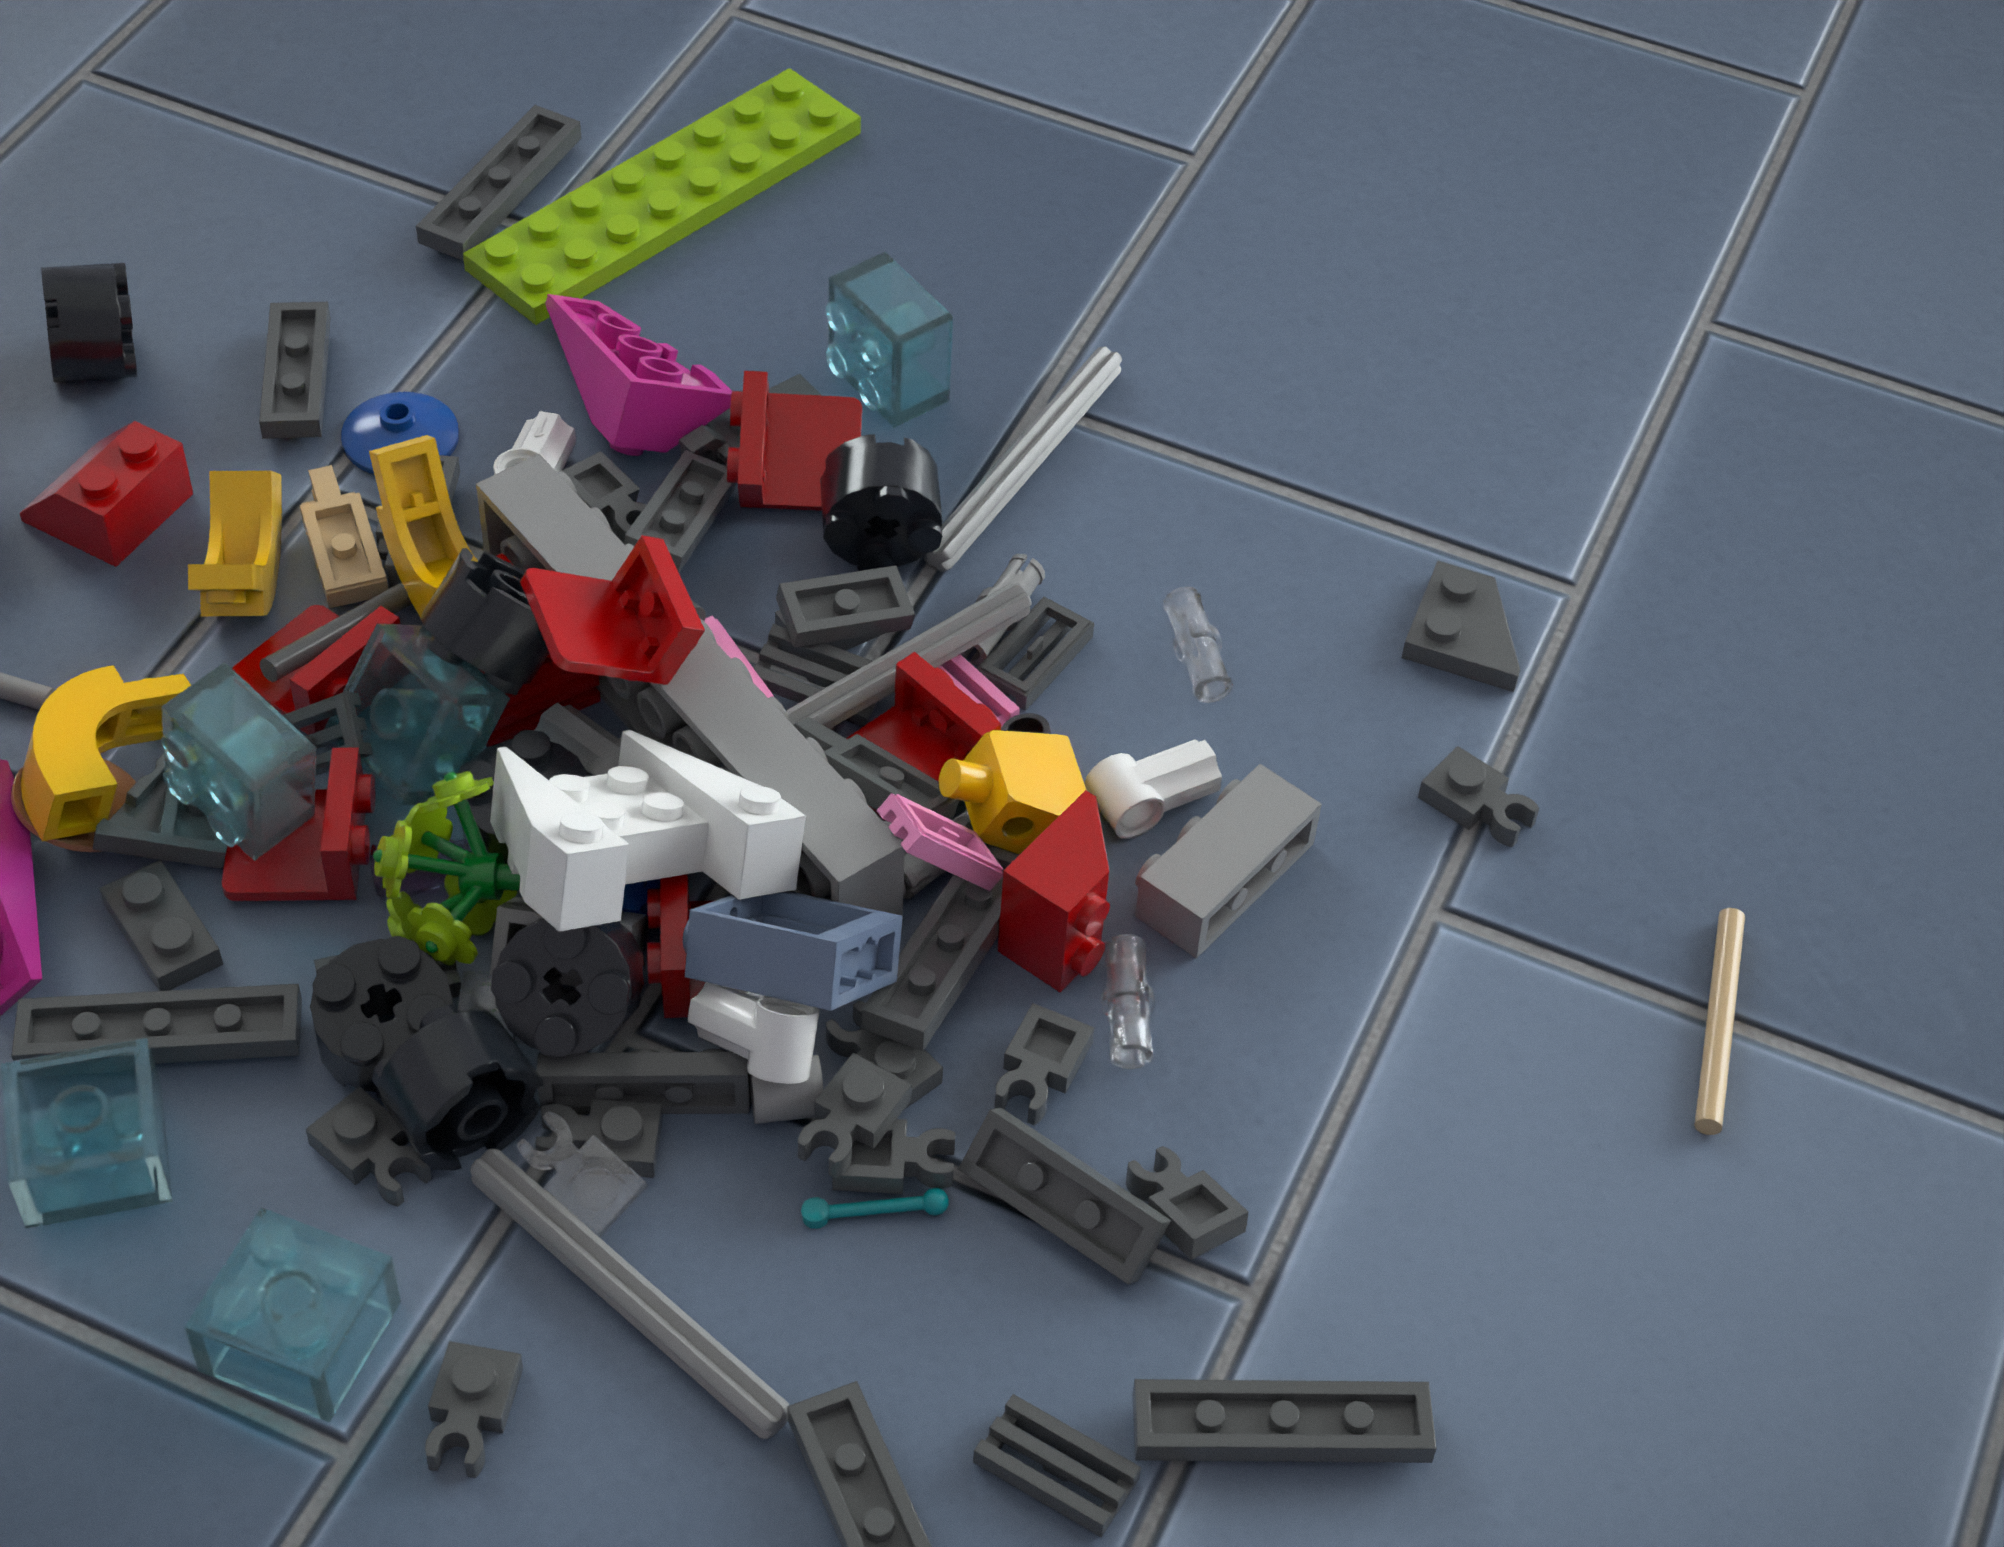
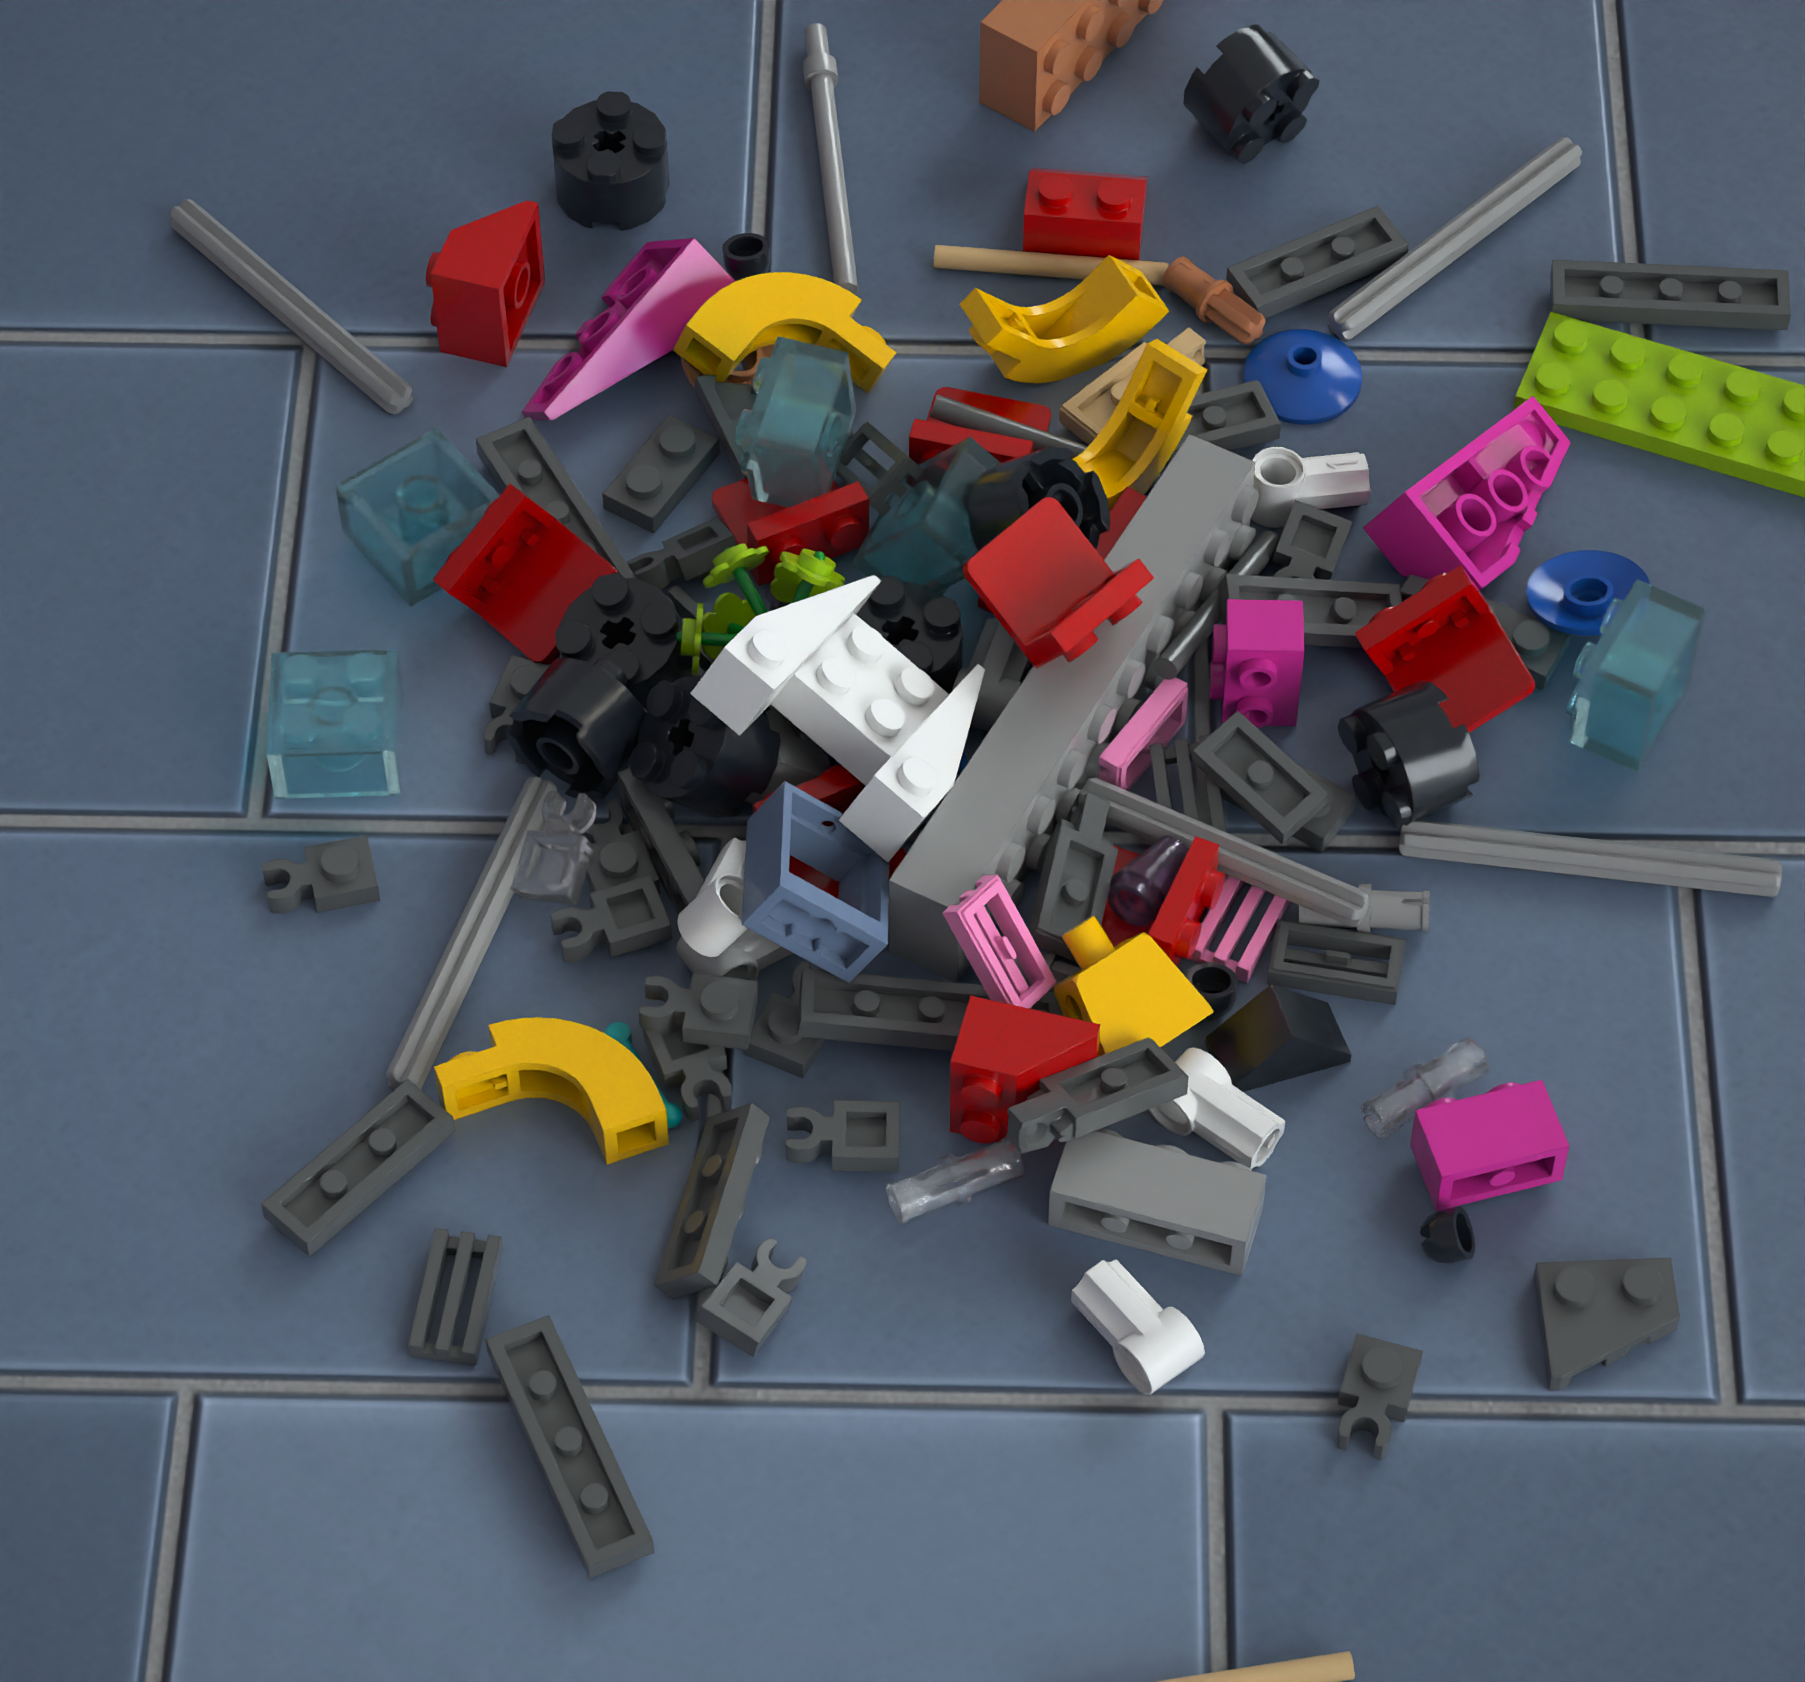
camera: 70 degrees right, 5 degrees up
(136, 551) = (1033, 263): none -> tan bar
(239, 1066) = (521, 572): none -> red bracket
(285, 447) = (1214, 300): none -> nougat axle
(285, 928) = (684, 555): none -> dark grey plate
(336, 283) = (1454, 239): none -> light grey axle
(687, 1154) = (619, 916): none -> dark grey plate
(725, 555) = (1259, 661): none -> dark pink brick
(774, 339) = (1578, 587): none -> blue dish
(859, 1244) = (565, 1065): none -> yellow arch
(903, 727) = (1146, 881): none -> clear purple cone
(1100, 718) = (1278, 1039): none -> black slope
(1134, 838) = (1096, 1095): none -> dark grey hinge
(1288, 618) = (1488, 1144): none -> dark pink brick
(1352, 683) = (1448, 1236): none -> black hinge
(1366, 921) = (1145, 1339): none -> white piece

